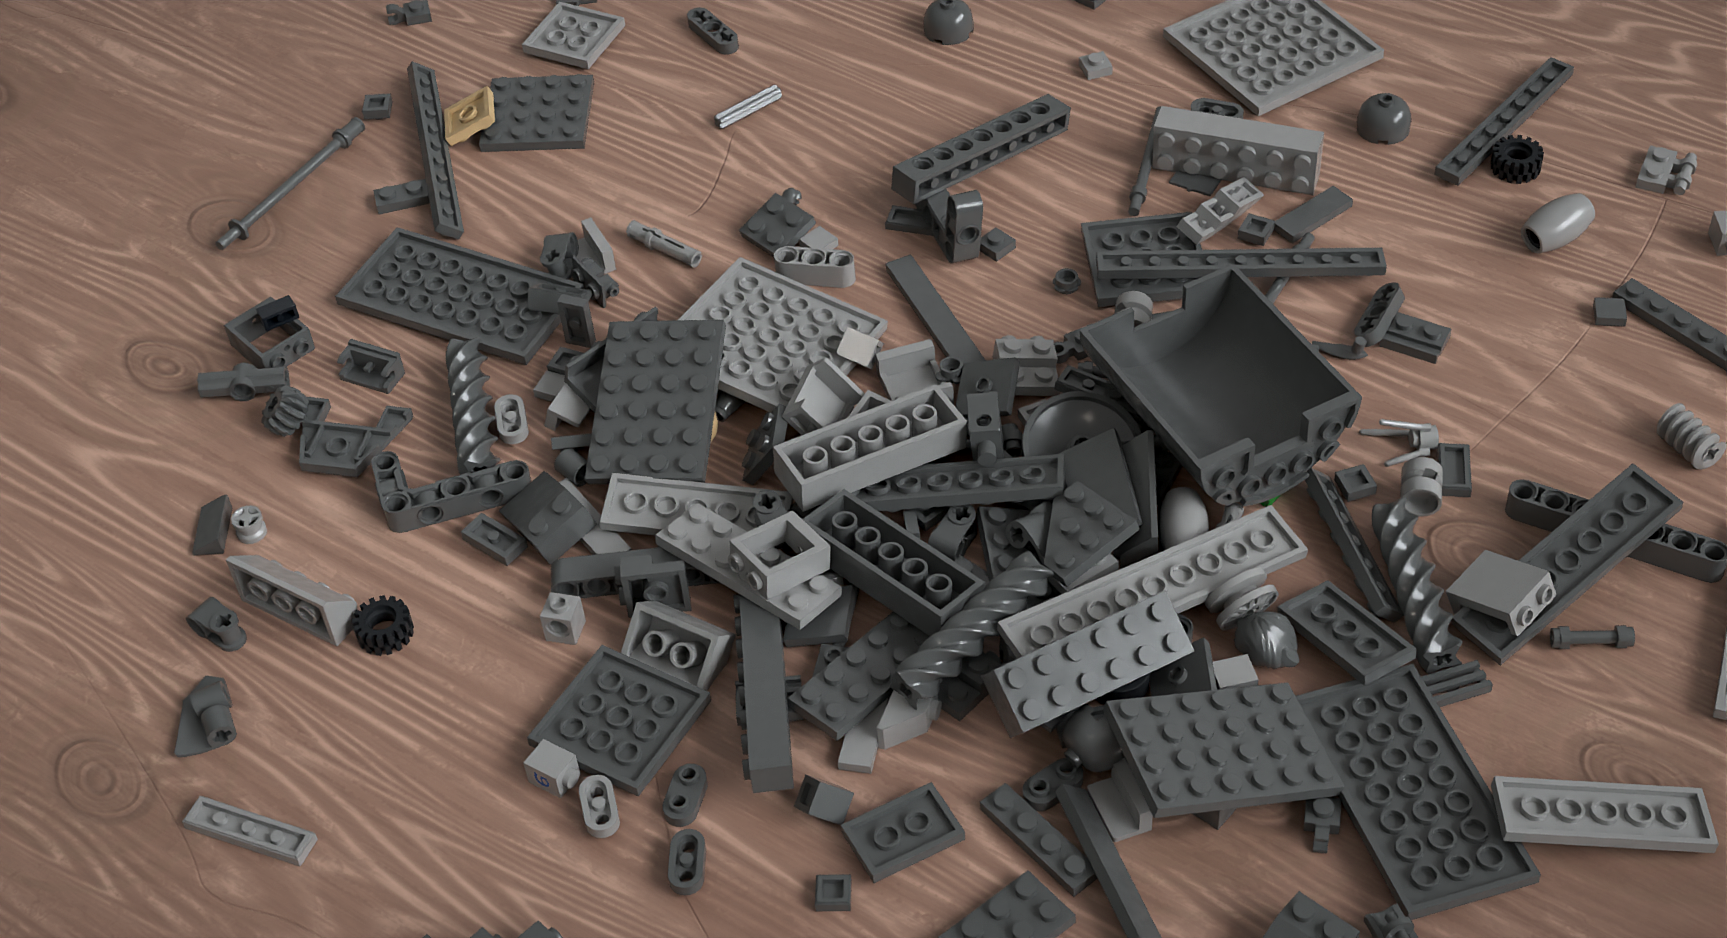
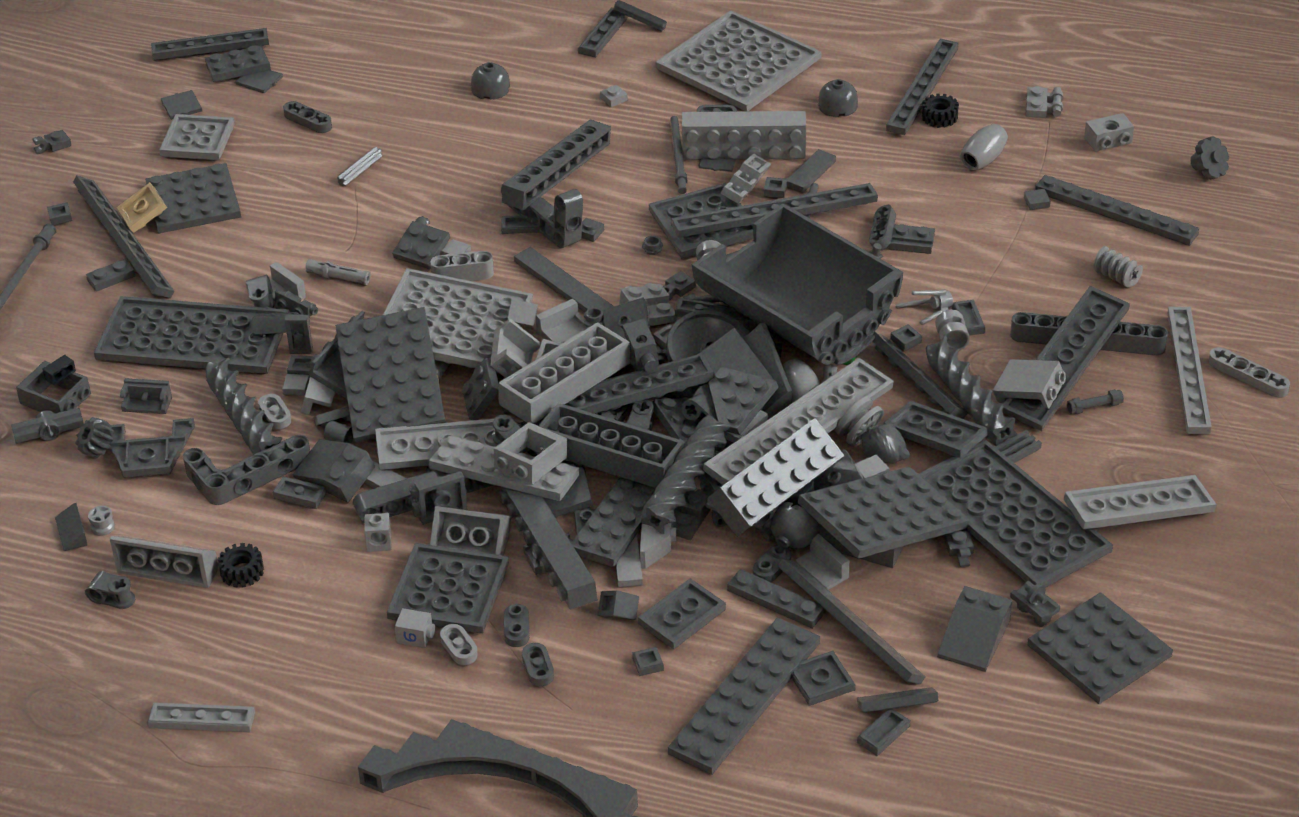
camera: 20 degrees left, 5 degrees down
(205, 718) = (132, 653): dark grey panel -> none

